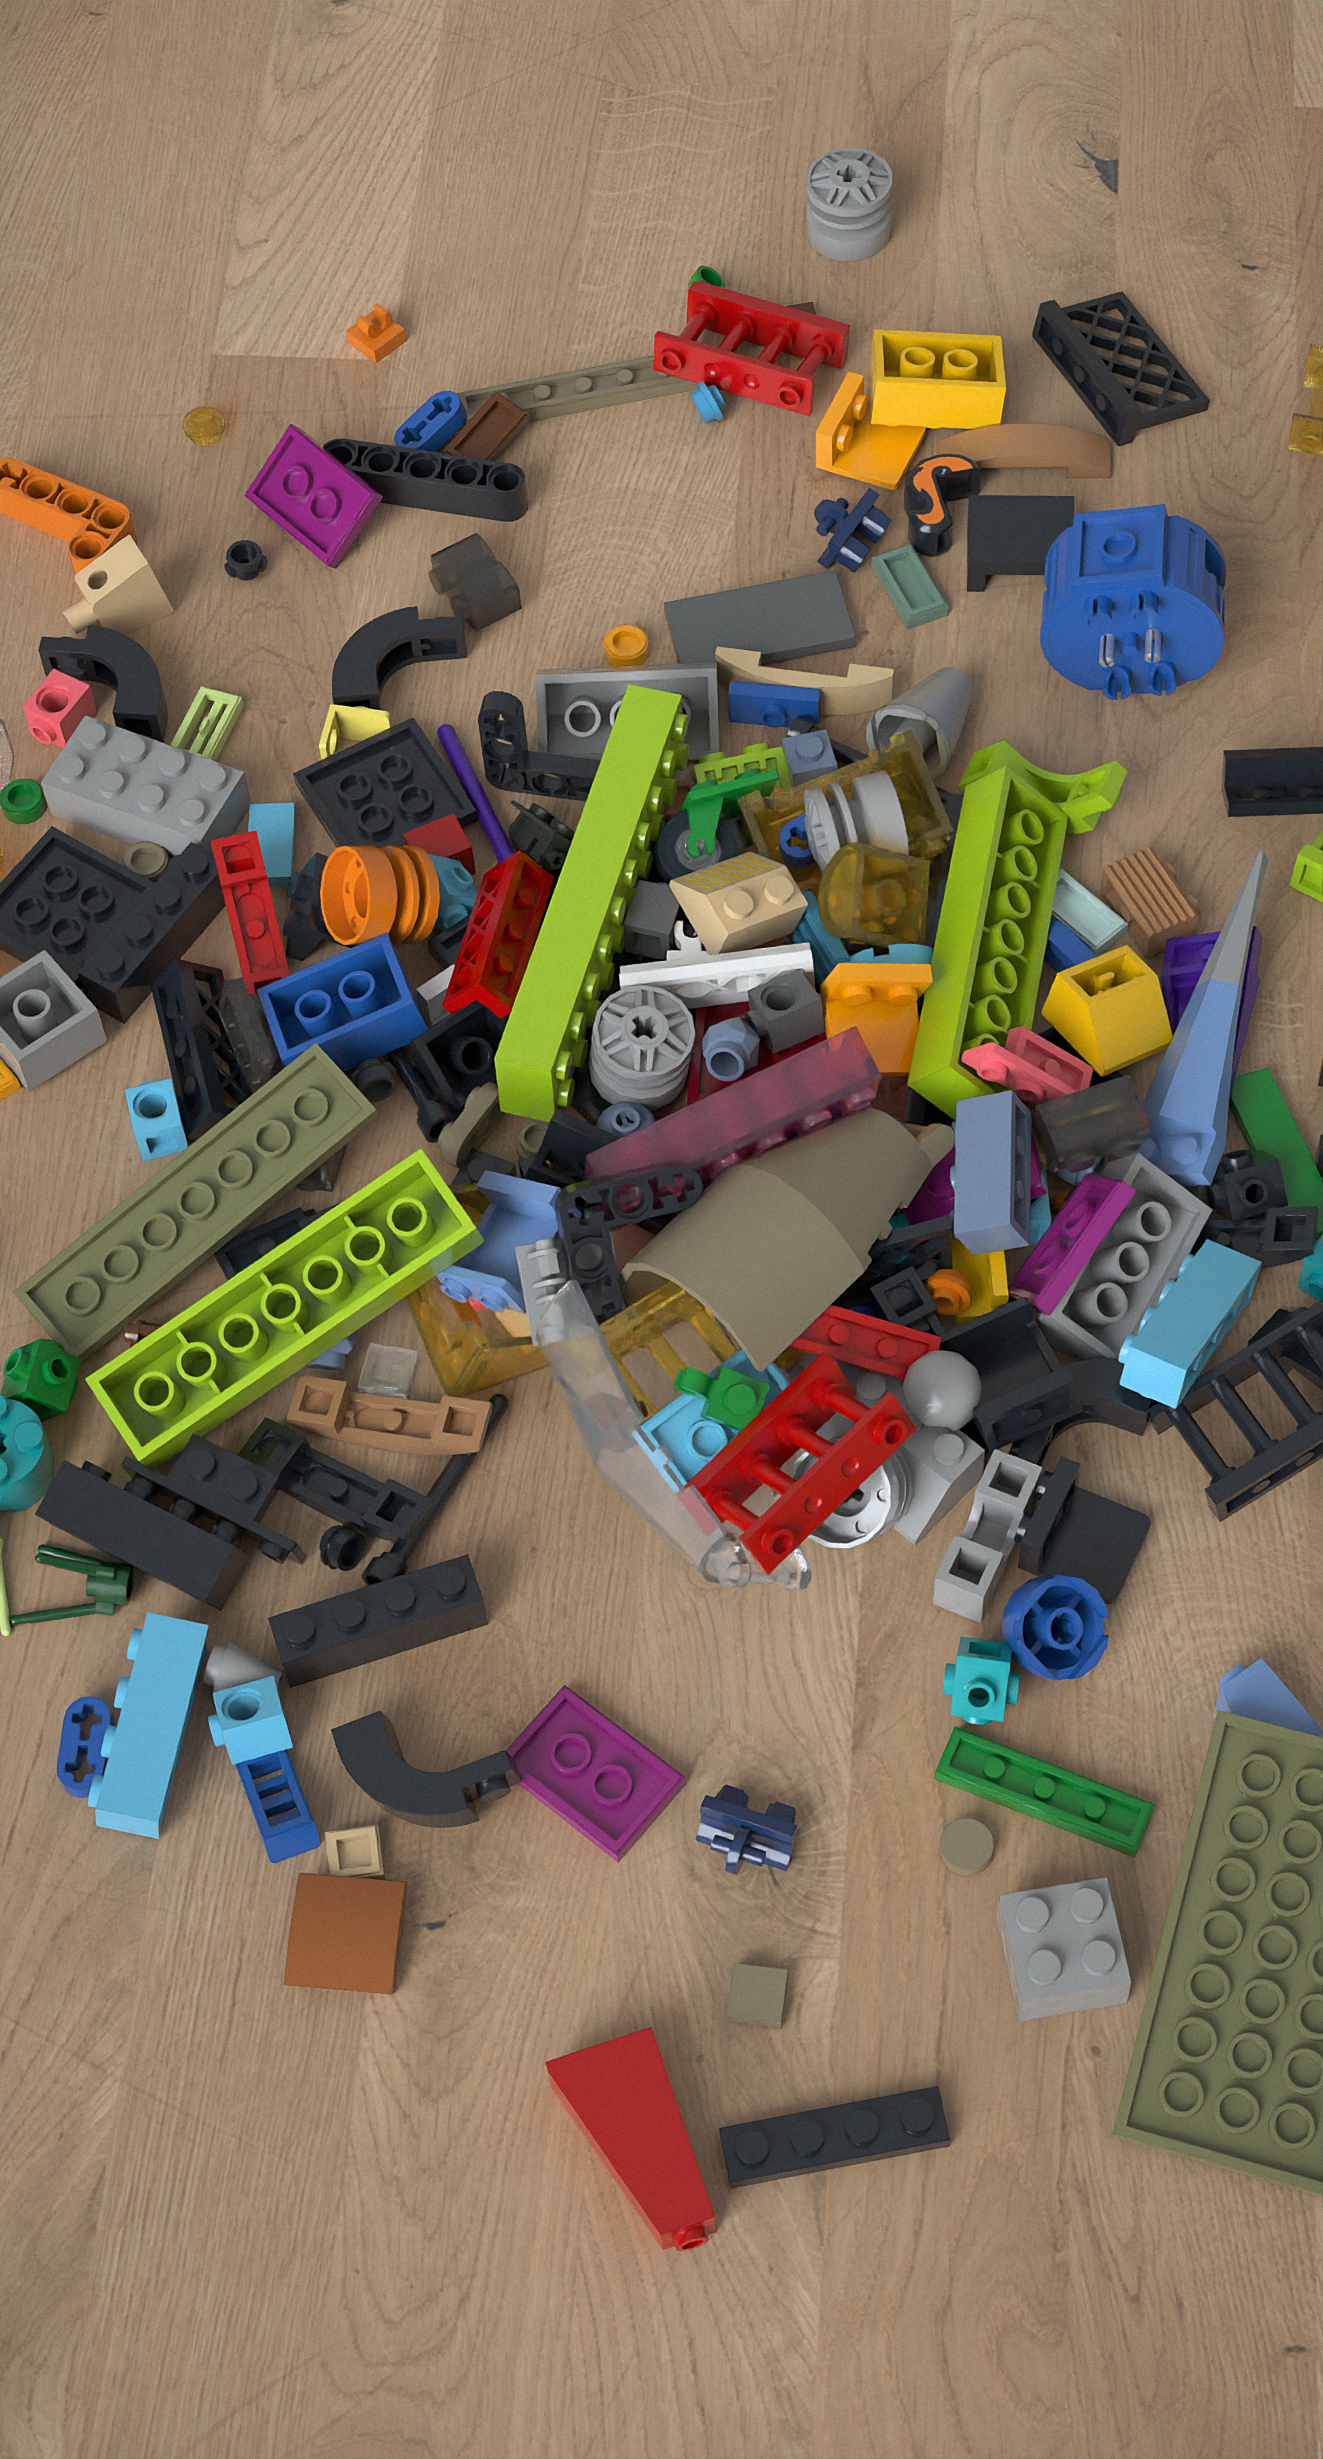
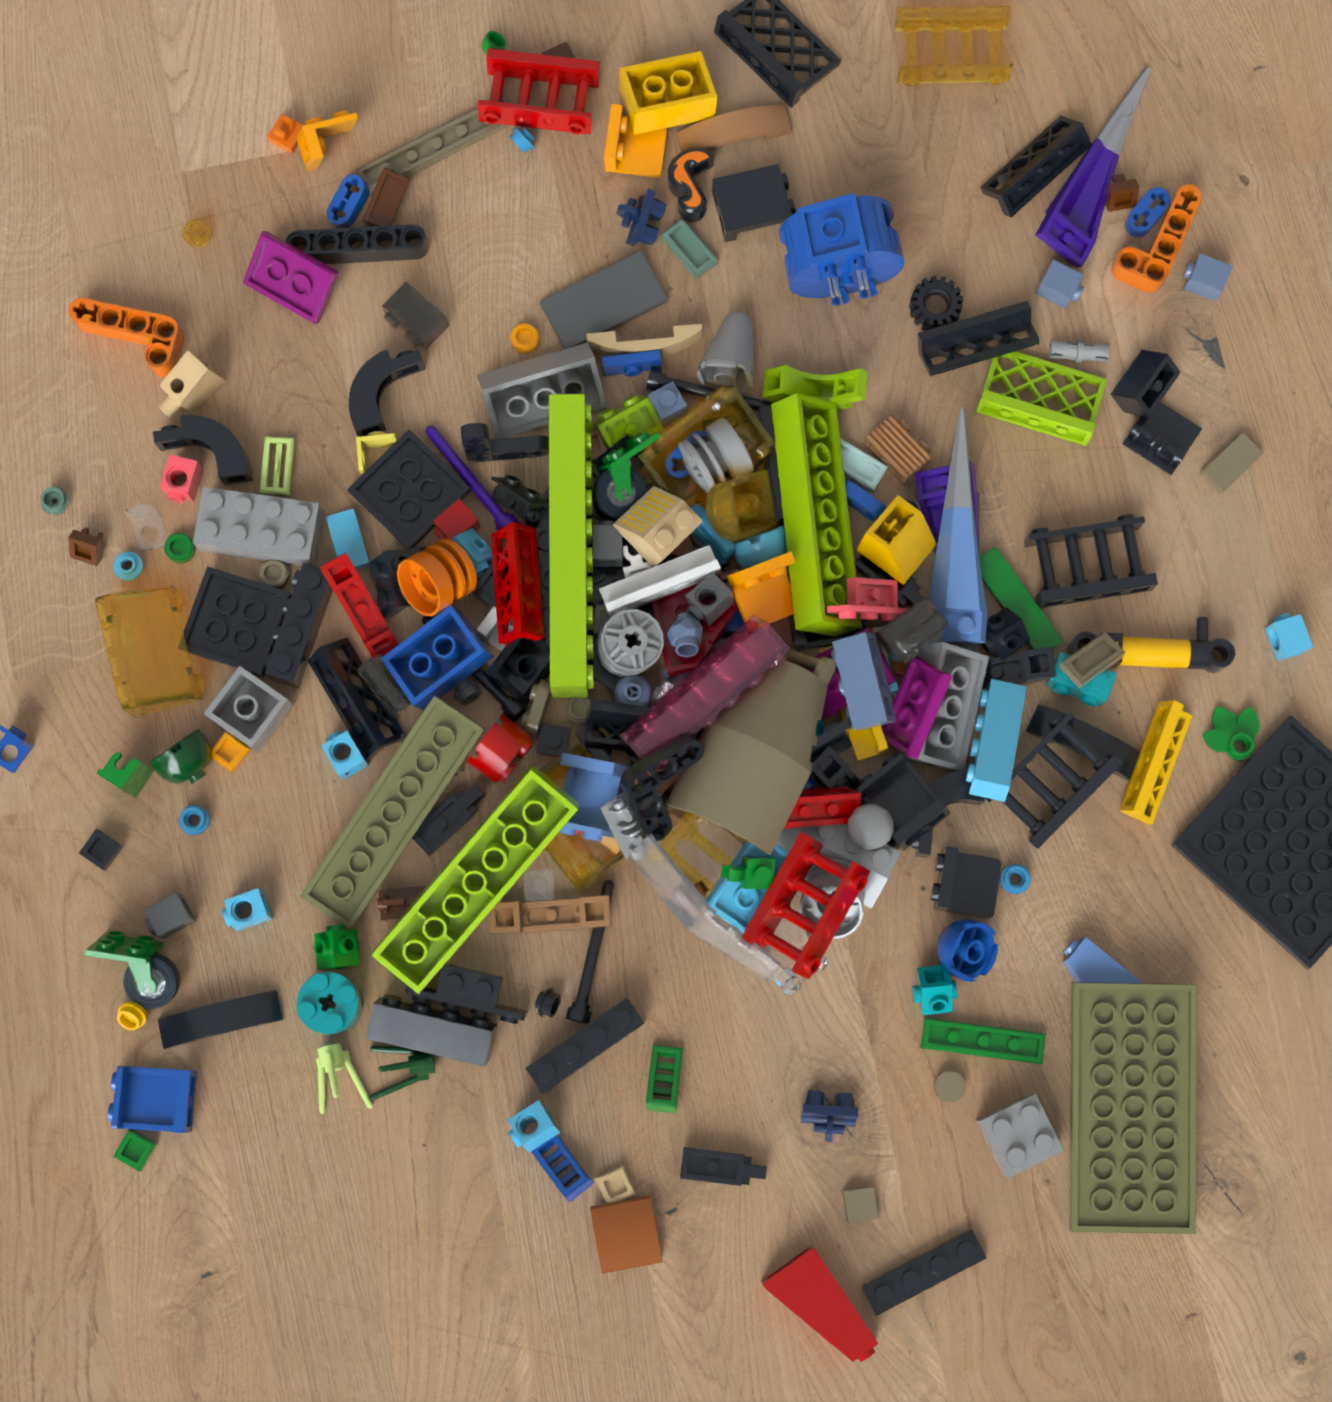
camera: 20 degrees left, 20 degrees up
(74, 1744) = (434, 1165): blue beam -> none
(151, 1725) = (478, 1146): medium azure brick -> none
(233, 1666) = (515, 1097): light grey cone -> none
(245, 560) = (261, 327): black plate -> none
(334, 1488) = (531, 966): black slope -> none
(387, 1141) = (500, 749): none -> red brick
(416, 1796) = (632, 1144): black arch -> none
(426, 326) = (312, 133): none -> light orange bracket
(473, 1740) = (658, 1104): none -> green slope
(538, 1869) = (719, 1167): none -> black hinge
(593, 1773) = (731, 1099): magenta tile -> none
(949, 1291) = (851, 751): orange plate -> none
(982, 1552) = (913, 900): light grey arch -> none
(1174, 1542) = (1022, 872): none -> dark azure plate
(1264, 707) = (940, 288): none -> black tyre

